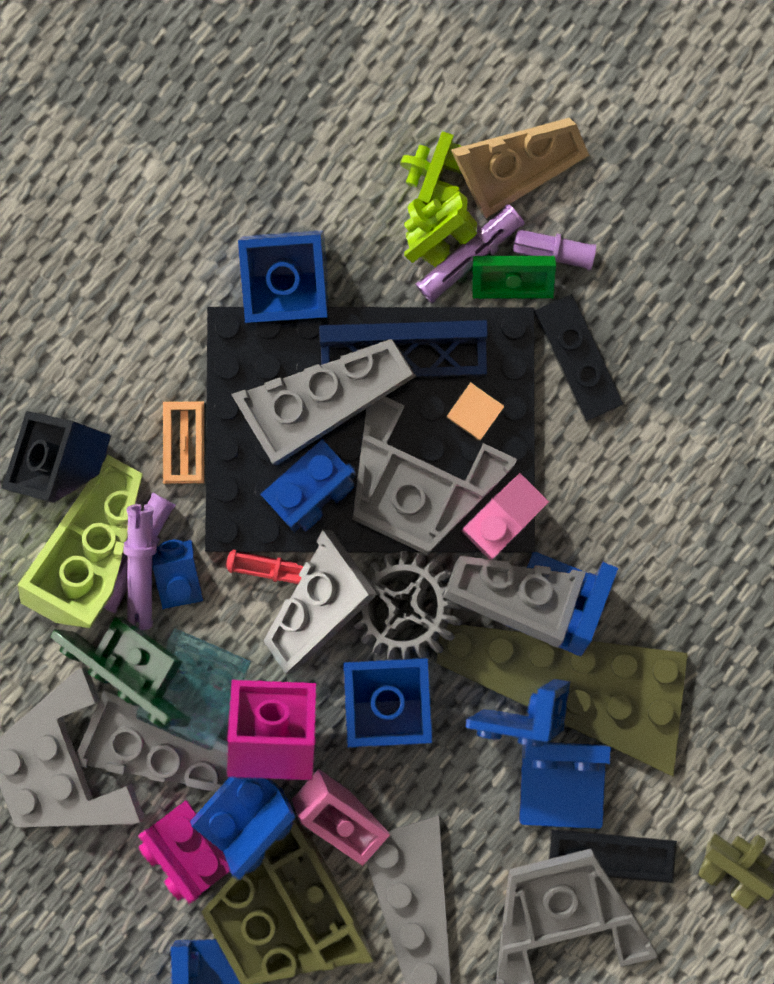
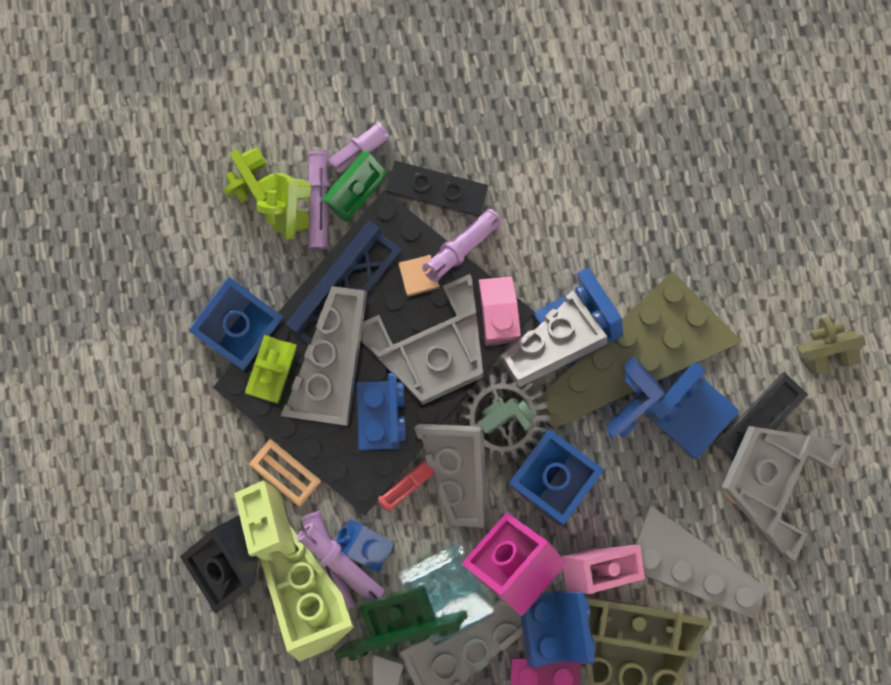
camera: 50 degrees left, 5 degrees down
(121, 462) = (264, 521): none -> yellowish green hinge
(266, 348) = (271, 369): none -> lime hips
(401, 600) = (499, 414): none -> sand green bracket
(518, 162) = (288, 125): tan wing -> none
(525, 426) = (453, 252): none -> lavender pin

